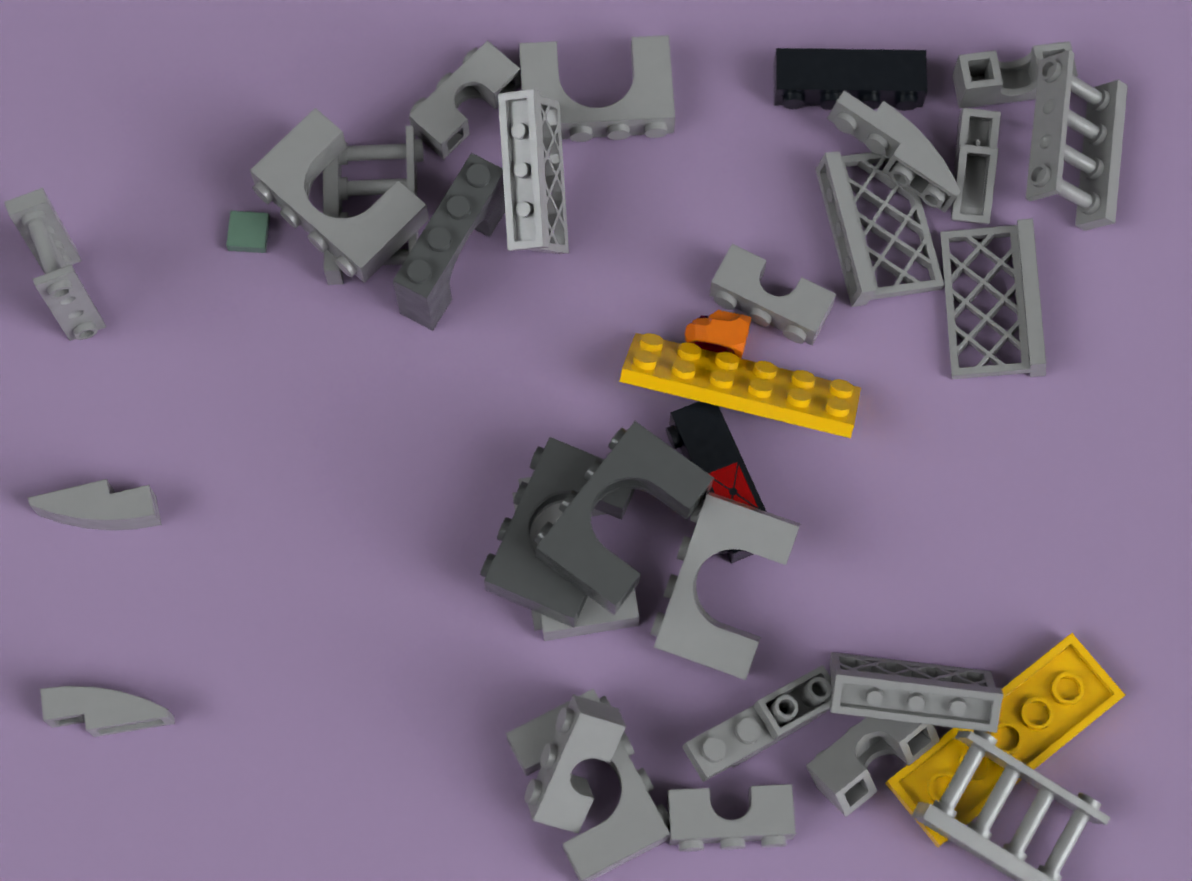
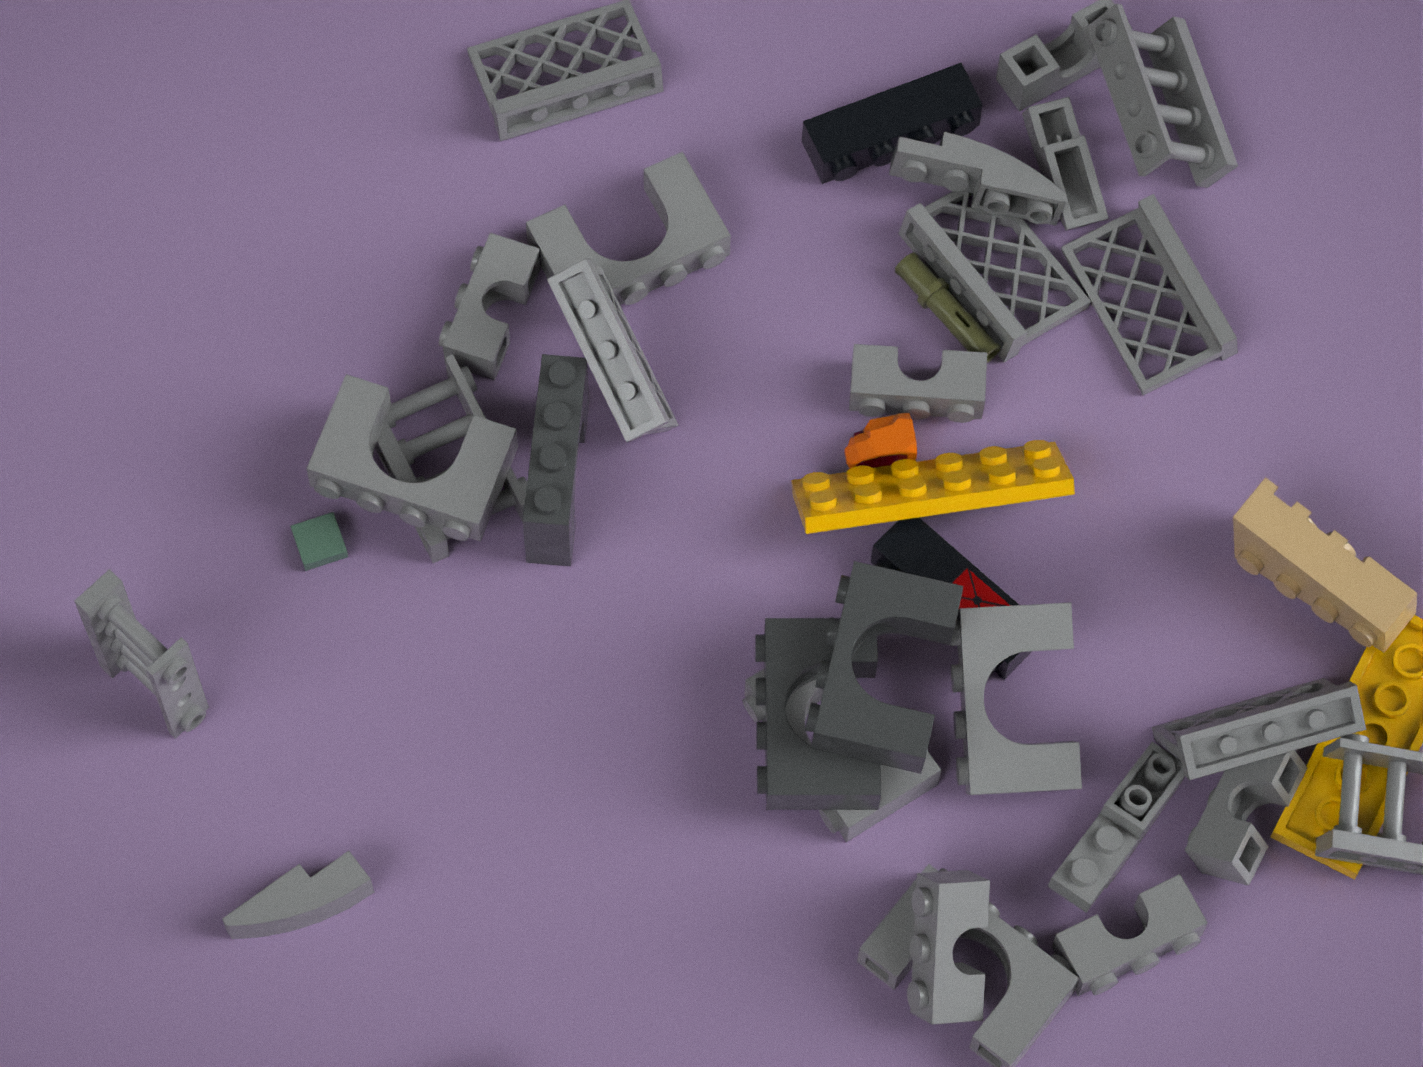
camera: 25 degrees left, 5 degrees down
(819, 230) = (934, 294): none -> olive pin
(1025, 583) = (1320, 569): none -> tan wedge

